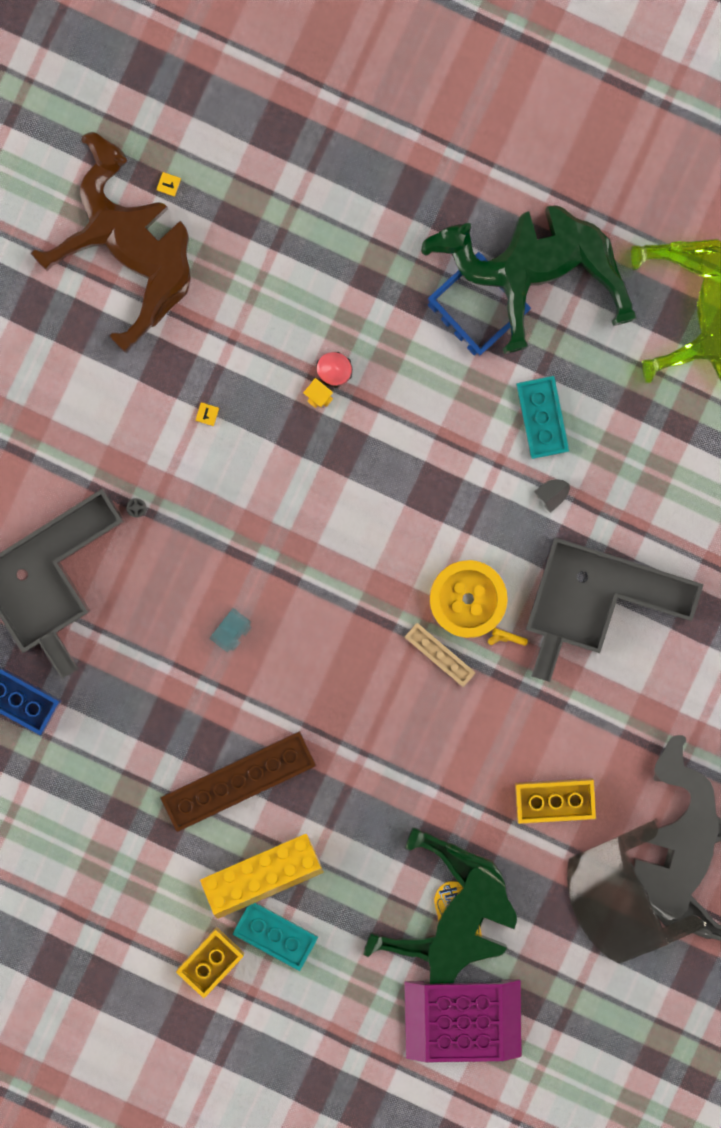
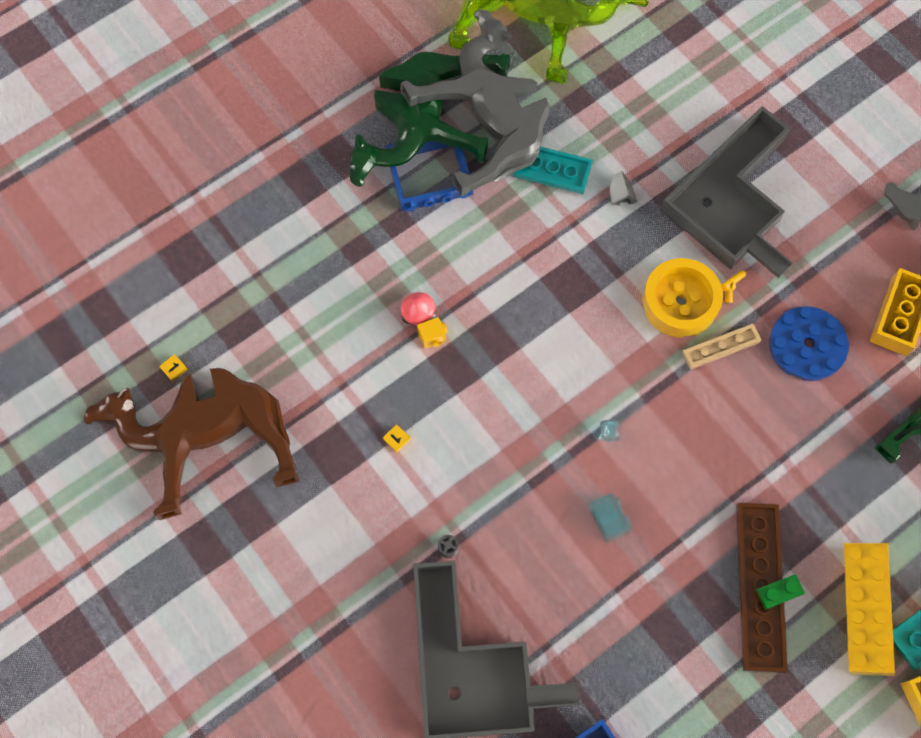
camera: 65 degrees left, 20 degrees down
(239, 798) = (780, 591): none -> green plate
(308, 593) = (609, 430): none -> clear light blue wheel
(465, 726) = (812, 324): none -> blue plate
(572, 329) = (494, 105): none -> dark grey animal

